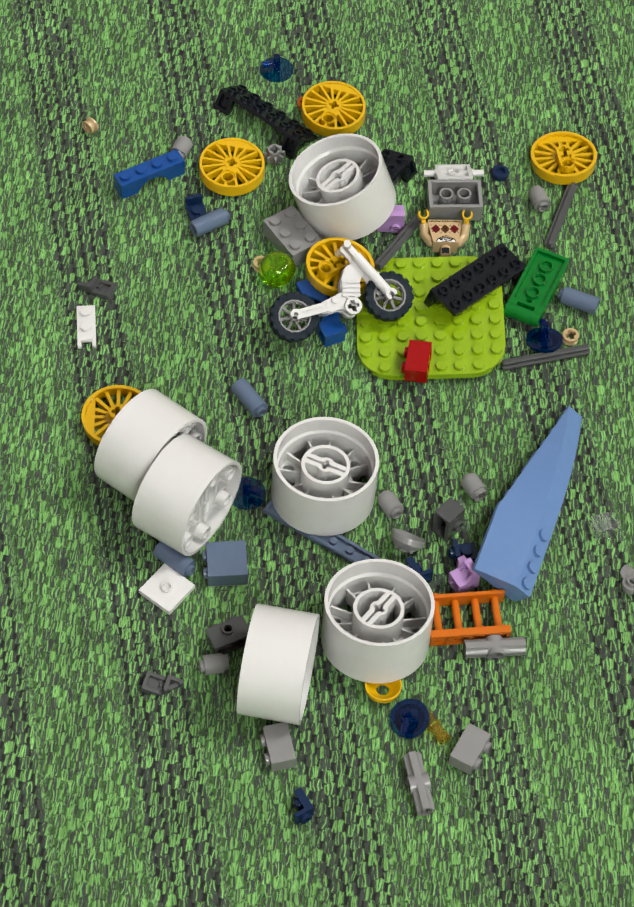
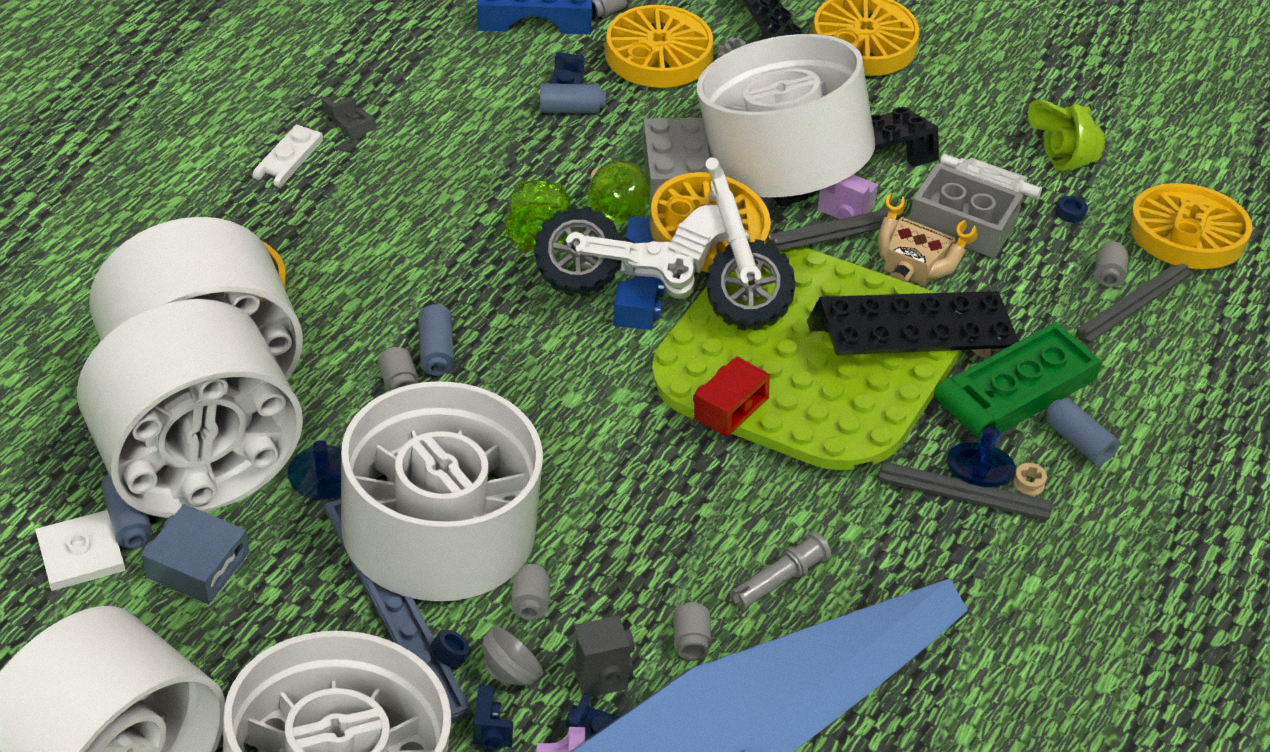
camera: 30 degrees right, 10 degrees down
(244, 423) = (397, 368): none -> light grey brick
(250, 303) = (530, 206): none -> clear neon green brick
(374, 548) = (450, 648): none -> dark blue tile
(476, 129) = (1067, 134): none -> lime head
(494, 432) = (793, 562): none -> light grey pin

